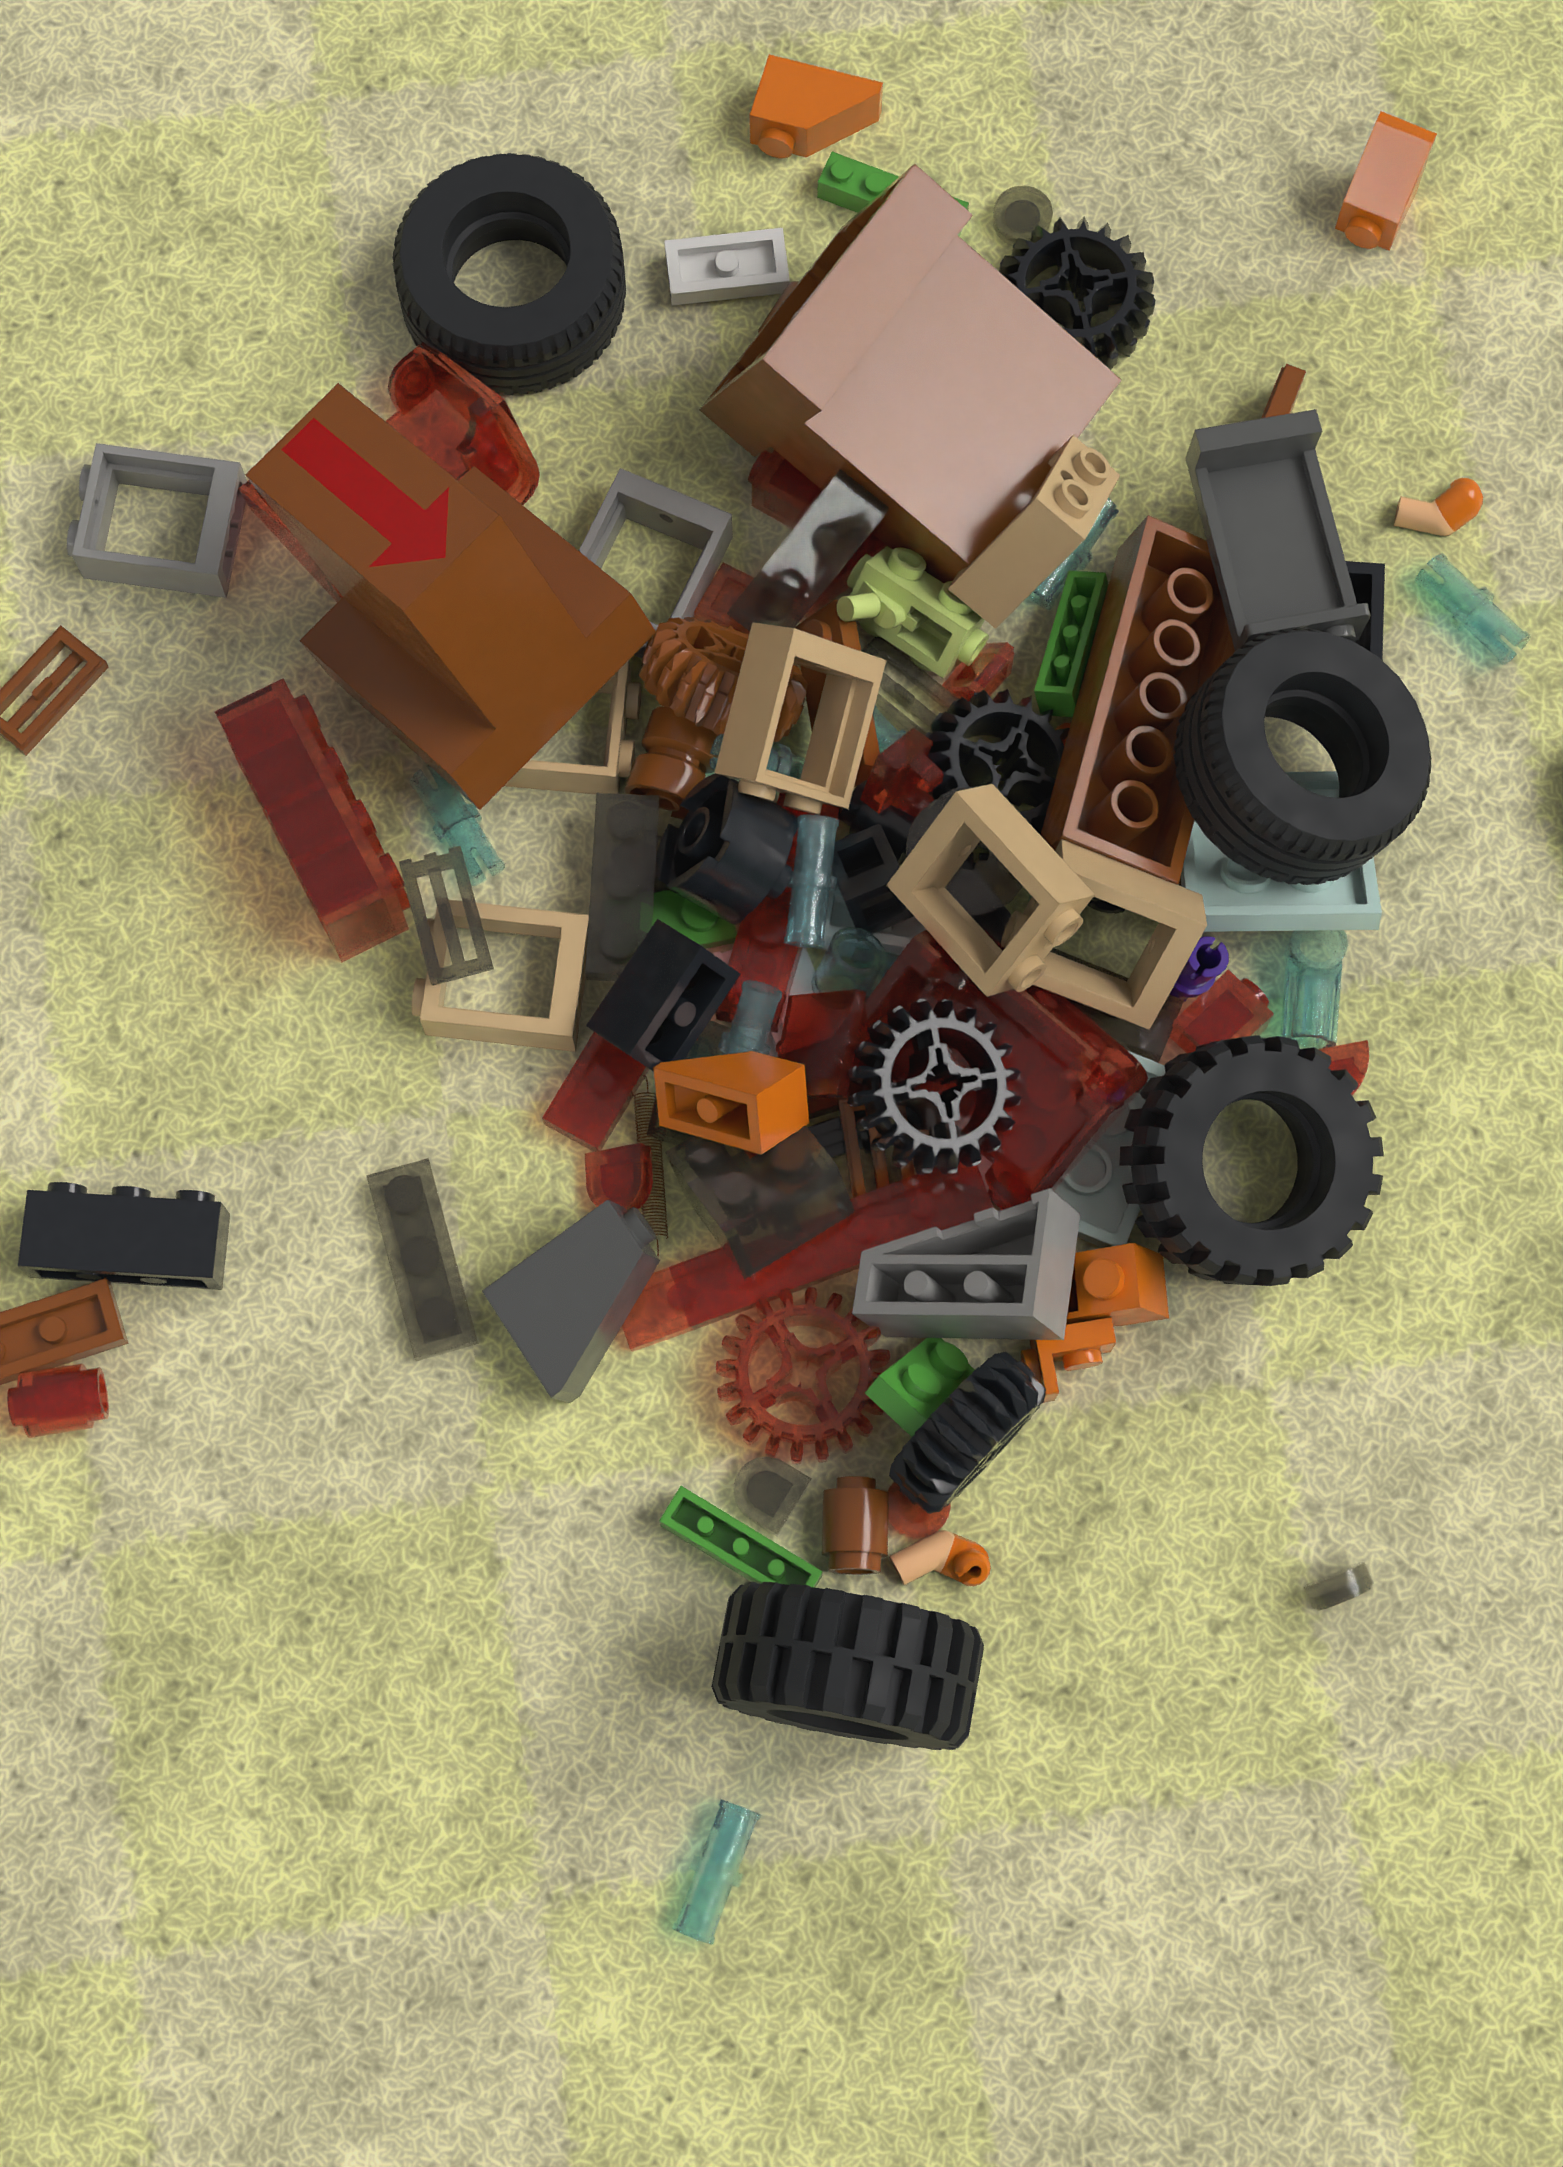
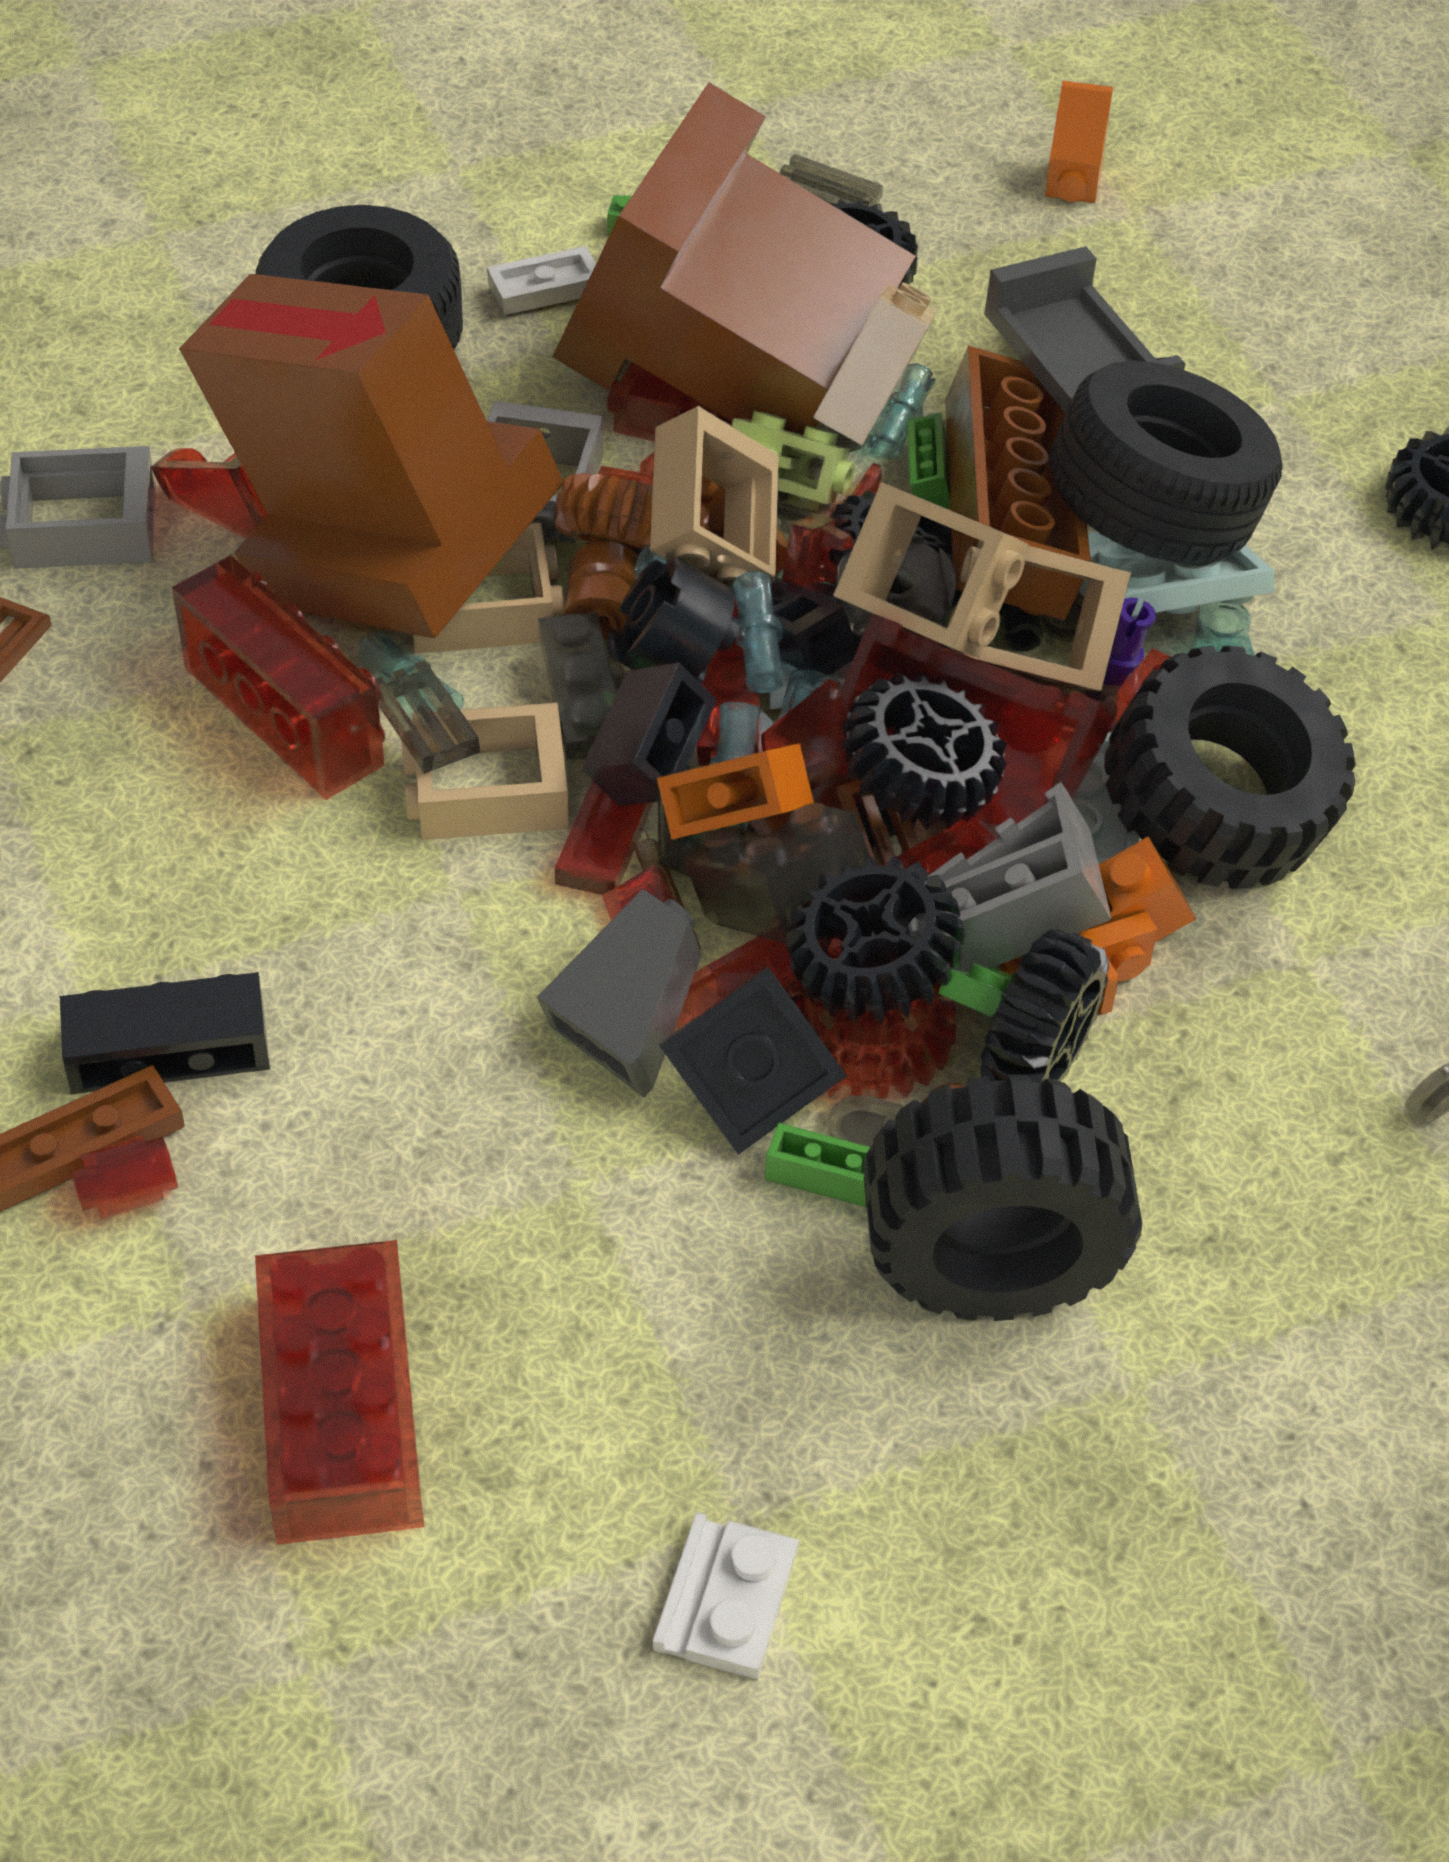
camera: 15 degrees left, 25 degrees down
(205, 1689) = (337, 1393): none -> clear red brick
(422, 1259) = (466, 1007): clear smoke plate -> none
(508, 1971) = (726, 1596): none -> white plate
(669, 1417) = (752, 1060): none -> black tile
(716, 1871) = (917, 1454): clear light blue pin -> none
(797, 1337) = (879, 960): none -> black gear
(809, 107) = (586, 173): orange slope -> none
(810, 555) = (700, 380): clear smoke plate -> none
(1098, 157) = (830, 182): none -> clear smoke tile
(1445, 513) = (1209, 347): arm -> none
(1472, 609) = (1267, 400): clear light blue pin -> none

